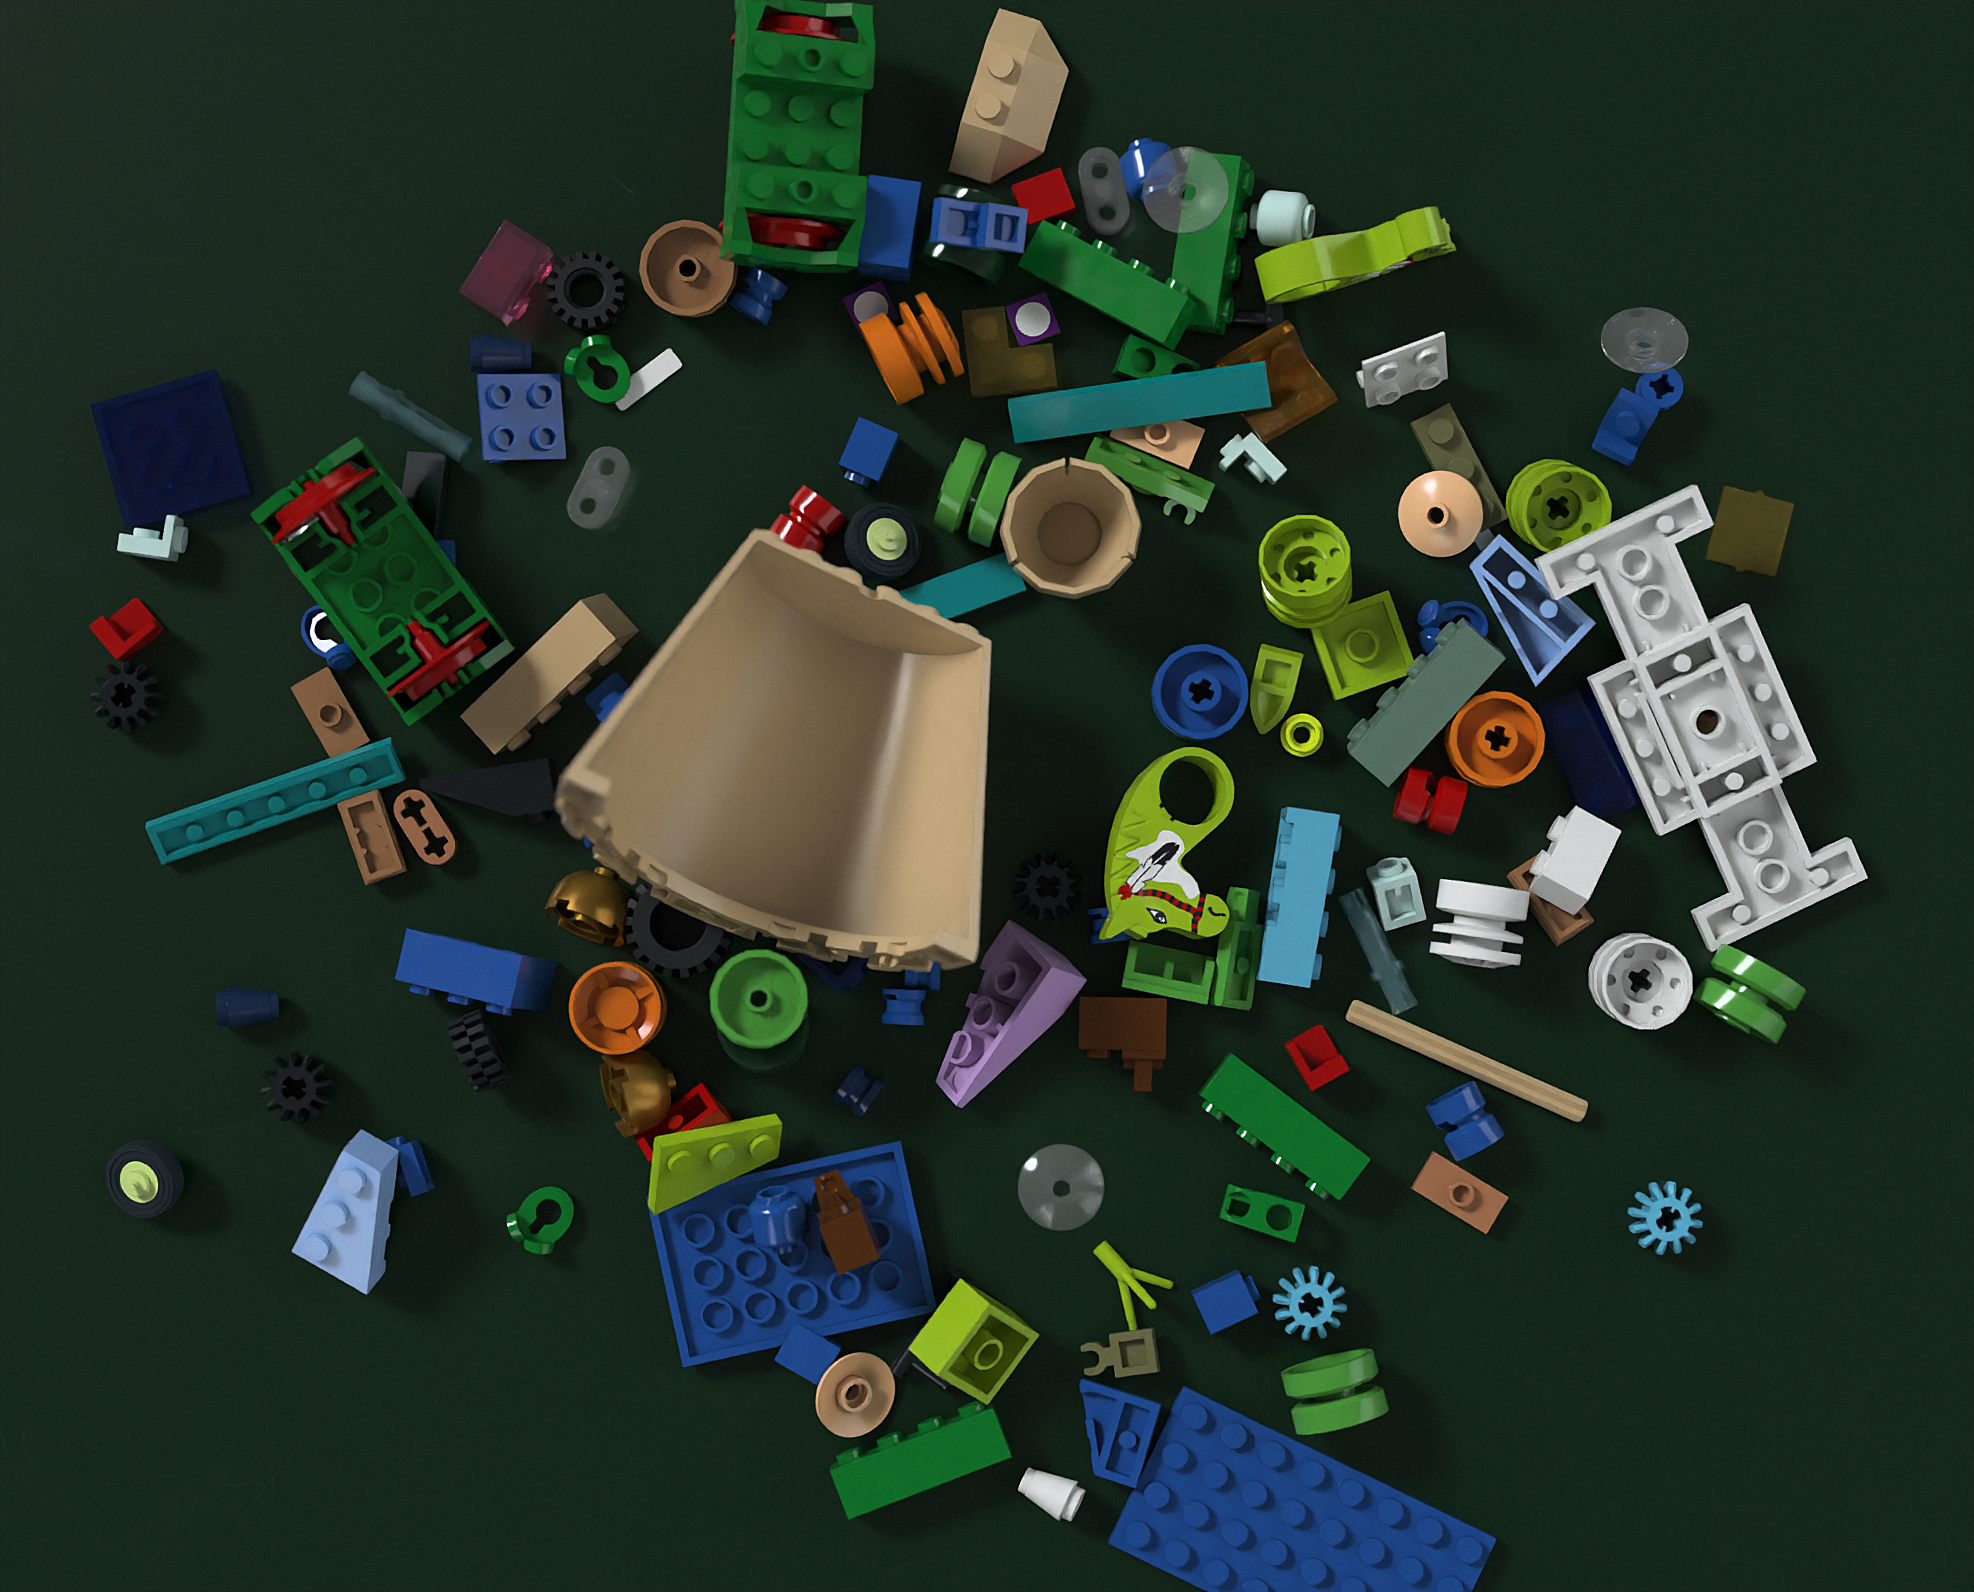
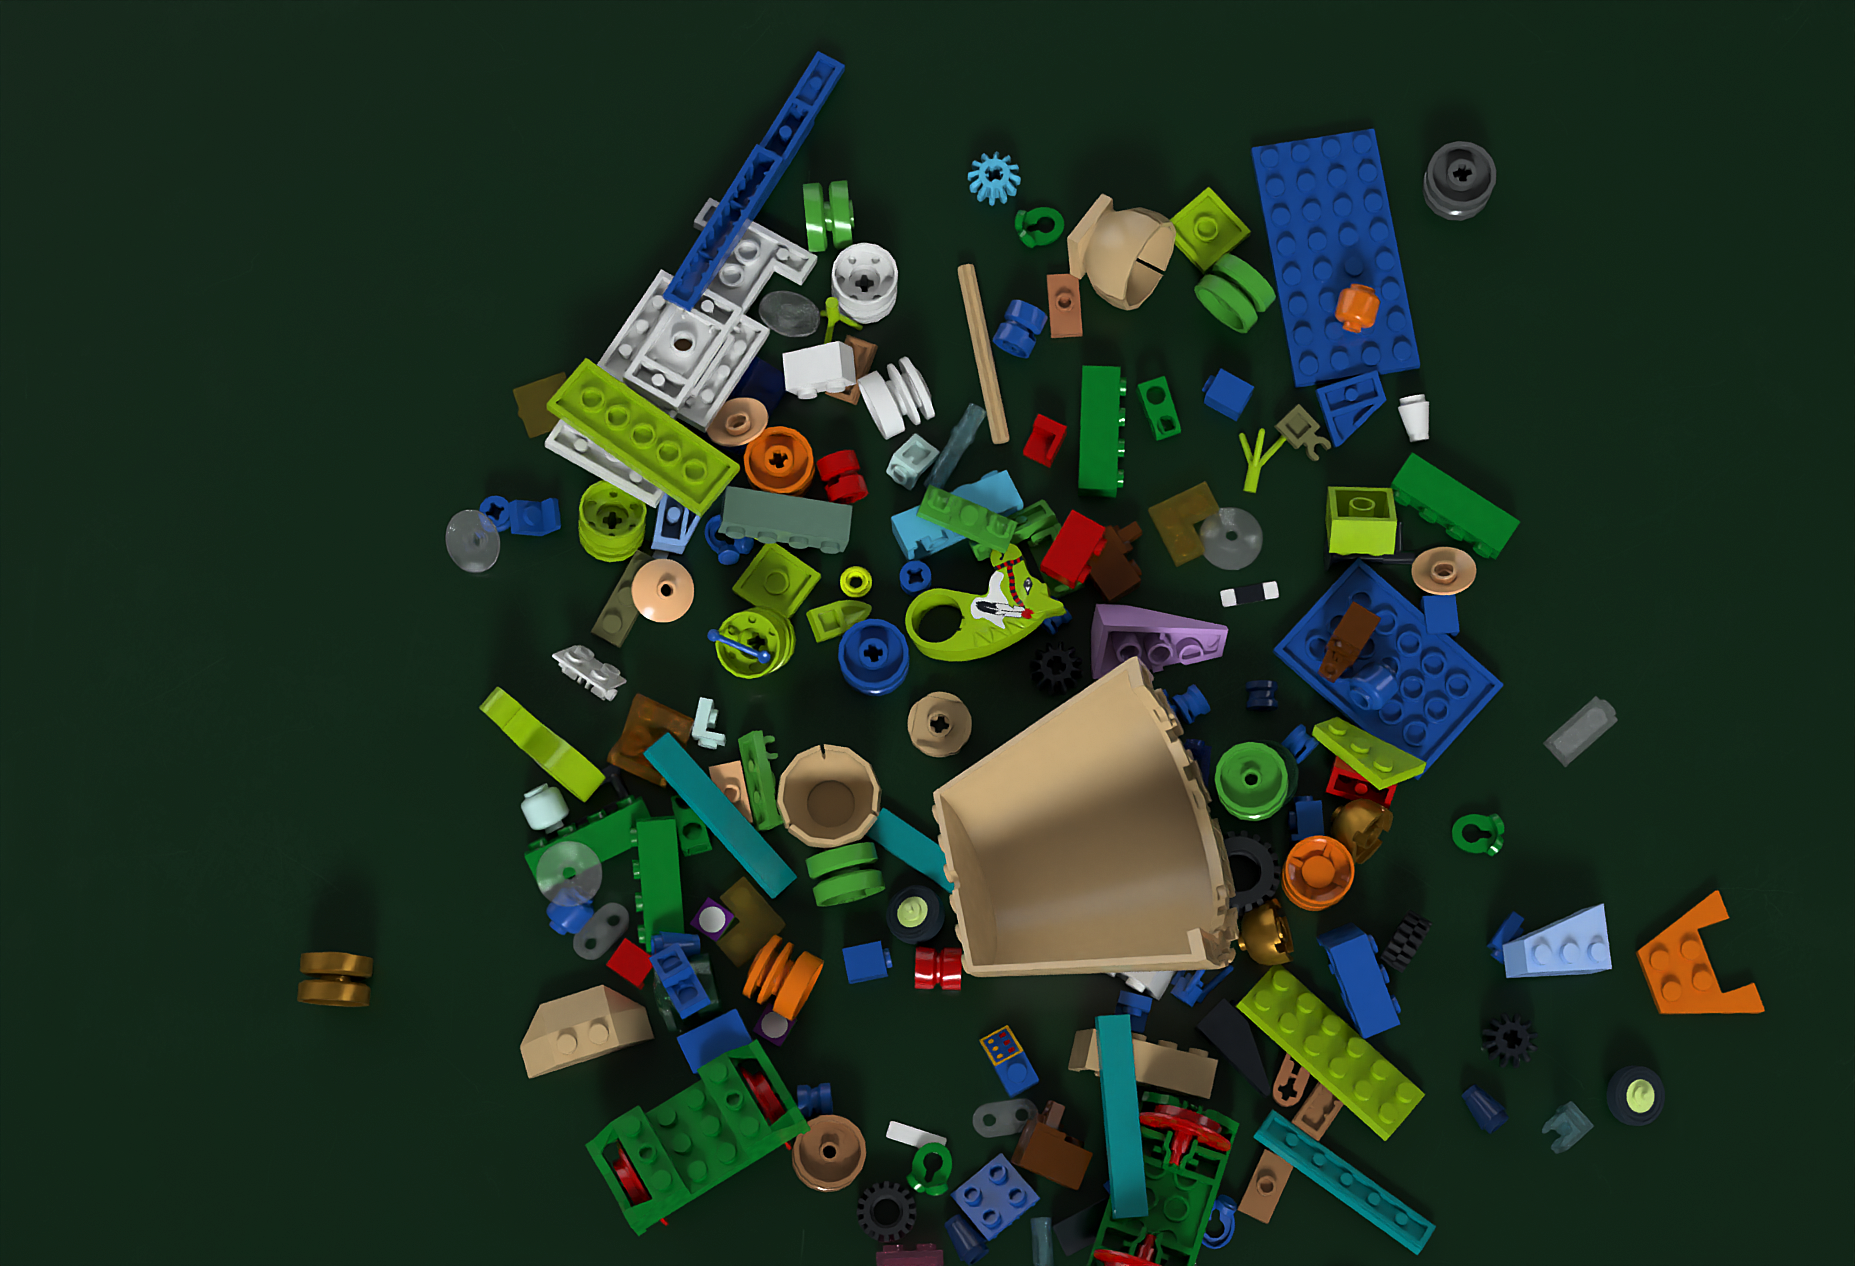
camera: 125 degrees left, 10 degrees down
(154, 1076) = (1570, 1124): none -> clear light blue hinge
(242, 1329) = (1682, 973): none -> orange wing
(420, 885) = (1331, 1051): none -> lime plate
(501, 601) = (1121, 1116): none -> teal tile
(526, 504) = (1047, 1153): none -> reddish brown hinge
(572, 1415) = (1581, 730): none -> clear brick
(653, 532) = (1009, 1061): none -> blue slope
(686, 1039) = (1305, 819): none -> blue brick
(780, 1094) = (1297, 741): none -> blue wheel
(984, 1163) = (1249, 594): none -> sticker
(1019, 266) = (689, 943): none -> blue cone
(1075, 690) = (949, 740): none -> tan plate
(1123, 1138) = (1176, 518): none -> clear yellow plate
(1162, 995) = (1074, 549): none -> red brick
(1219, 1517) = (1357, 307): none -> orange head
(1253, 806) = (915, 584): none -> blue wheel
(1280, 900) = (967, 518): none -> bright green plate
(1282, 566) = (763, 655): none -> blue hinge
(1317, 1290) = (1186, 335): medium azure gear -> none
(1434, 1415) = (1207, 230): none -> lime plate
(1484, 1288) = (1107, 250): none -> tan plate
(1573, 724) = (738, 422): none -> light nougat dish
(1592, 1220) = (1024, 219): none -> green piece
(1624, 598) = (643, 437): none -> lime plate
(1624, 918) = (834, 316): none -> lime plant
(1664, 873) = (789, 313): none -> clear dish
(1848, 938) = (754, 183): none -> blue slope

